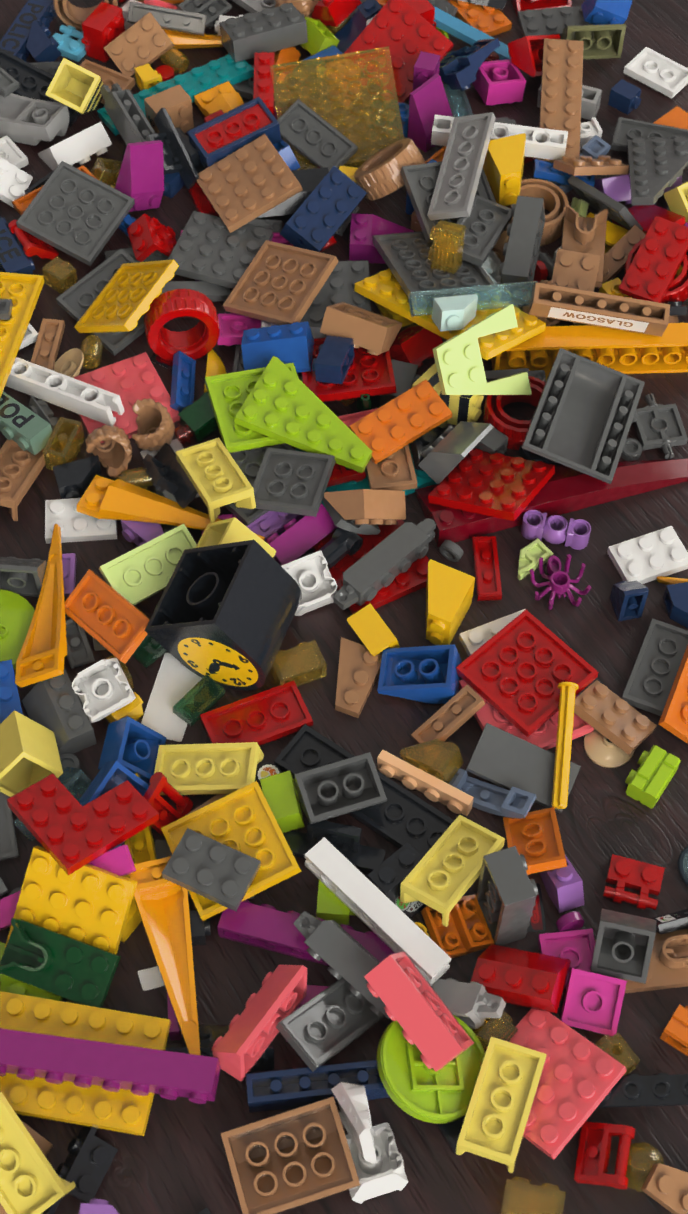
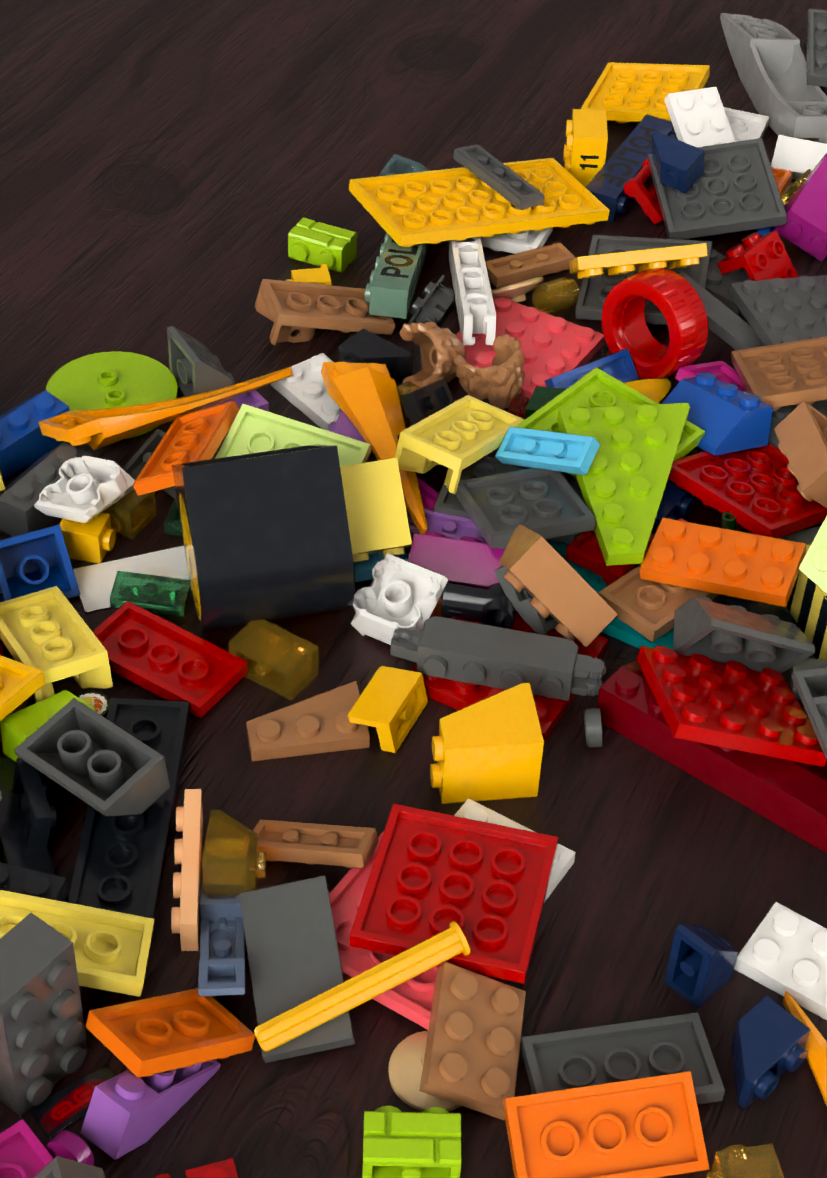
camera: 55 degrees right, 15 degrees down
(43, 216) = (676, 162): none -> dark blue slope
(59, 275) = (635, 223): clear yellow brick -> none
(64, 442) = (389, 319): clear yellow brick -> none
(265, 443) = (548, 450): none -> medium azure plate
(333, 359) = (747, 459): dark blue brick -> none
(420, 673) = (361, 778): blue slope -> none
(486, 568) = (607, 783): red tile -> none
(530, 556) = (672, 825): yellowish green tile -> none
(536, 526) = (742, 825): medium lavender piece -> none
(558, 581) = (656, 867): magenta animal -> none

